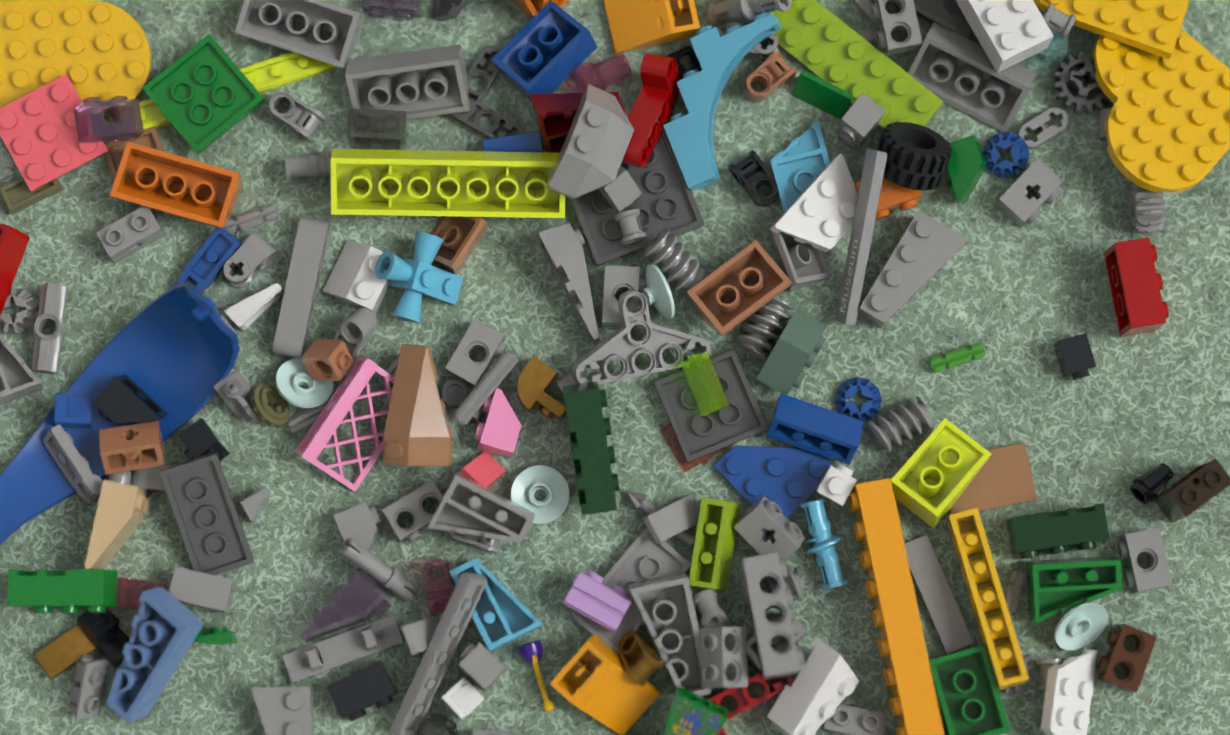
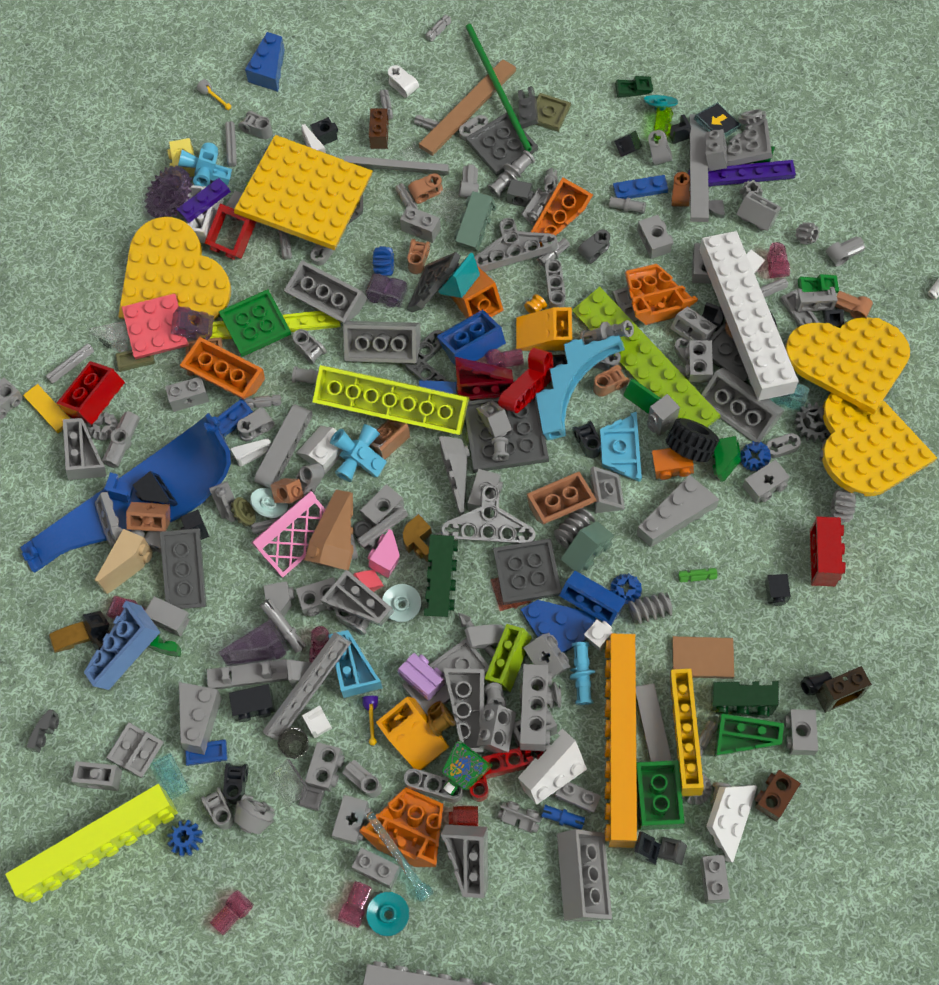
camera: 20 degrees right, 15 degrees down
(63, 590) = (78, 595): green wedge -> none
(87, 697) = (76, 664): light grey hinge -> none
(255, 503) = (217, 570): light grey slope -> none
(378, 128) = (355, 360): clear smoke bracket -> none
(482, 665) = (334, 701): light grey brick -> none
(592, 146) = (485, 391): light grey wedge -> none
(658, 292) = (508, 492): light aqua dish -> none
(674, 260) = (522, 475): light grey piece -> none
(704, 383) = (525, 554): clear neon green hinge -> none
(823, 209) = (628, 462): white wing -> none
(861, 236) = (648, 482): light grey tile -> none
(938, 472) = (669, 643): neon yellow slope -> none
(1058, 20) = (804, 376): light grey bush -> none
(1081, 626) = (748, 765): light aqua dish -> none

